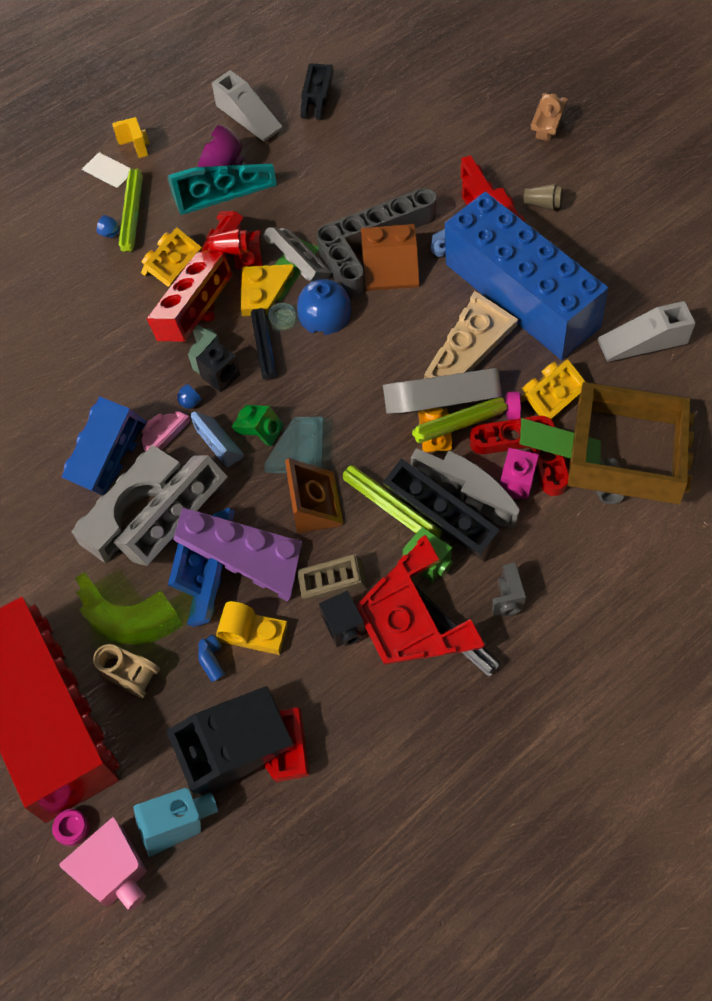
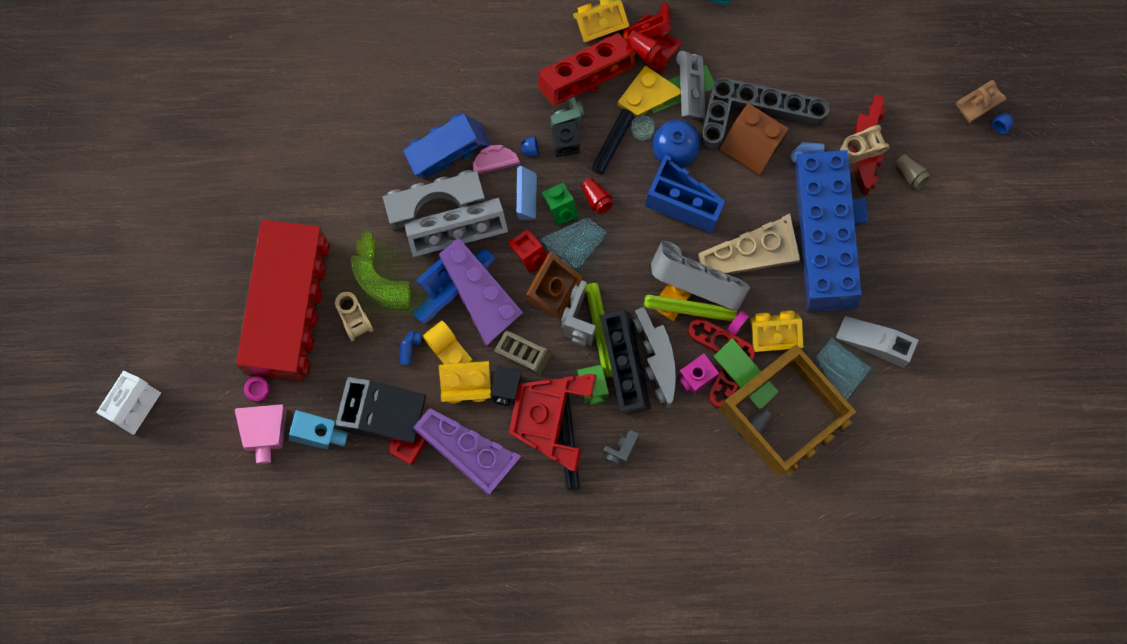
camera: 35 degrees right, 15 degrees up
(261, 481) = (528, 250): none -> red bracket
(289, 394) = (598, 198): none -> red cone
(297, 647) = (465, 382): none -> yellow bracket
(364, 712) = (472, 454): none -> medium lavender wing
(369, 511) = (575, 329): none -> light grey bracket
(371, 339) = (683, 197): none -> blue wedge
(494, 184) = (868, 144): none -> tan piece
(580, 121) = (1003, 123): none -> blue hinge
(635, 375) = (841, 367): none -> clear light blue wing

